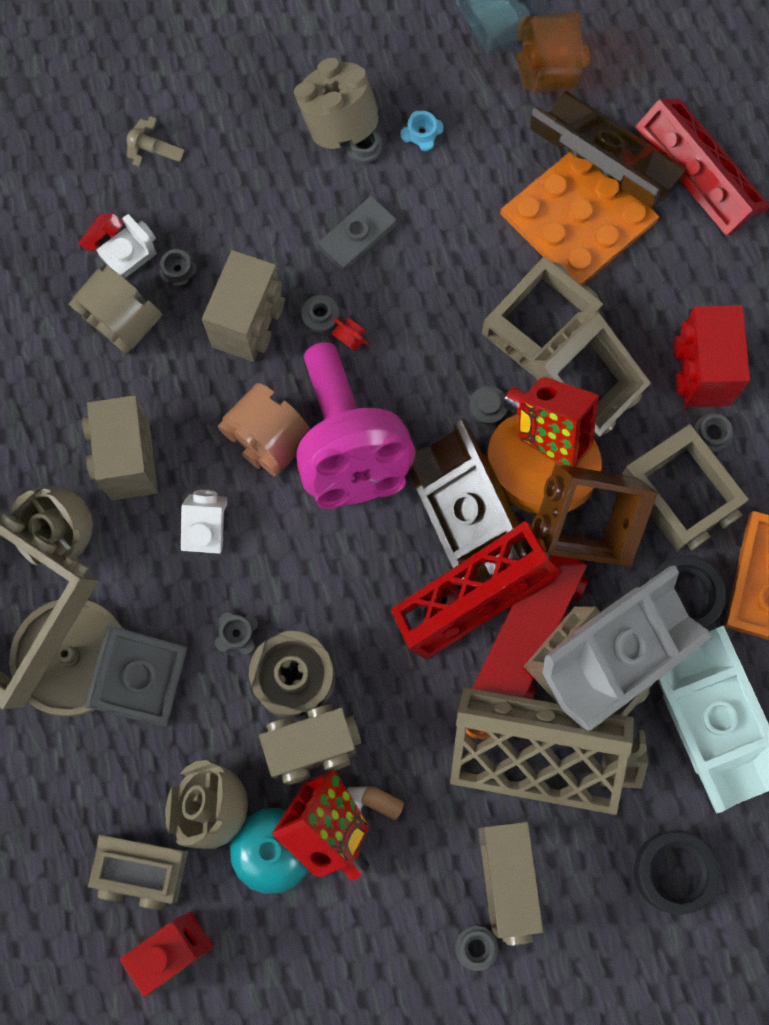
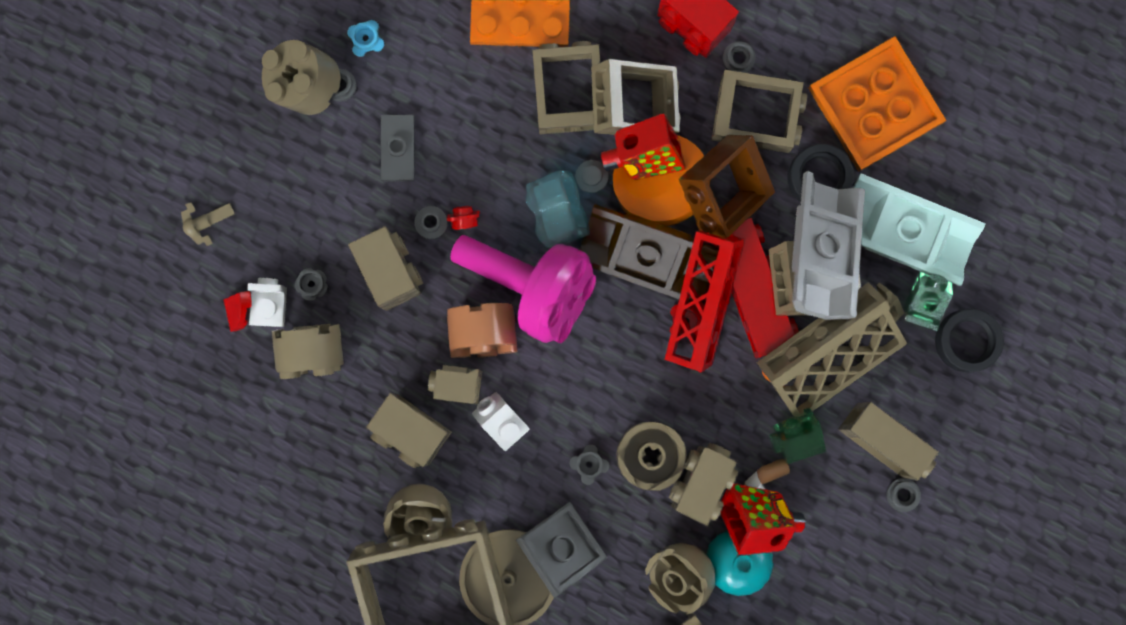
camera: 45 degrees left, 10 degrees up
(198, 451) = (455, 384): none -> dark tan window
(433, 398) = (557, 209): none -> clear light blue brick
(434, 794) = (798, 437): none -> clear green brick
(659, 803) = (919, 308): none -> clear green brick

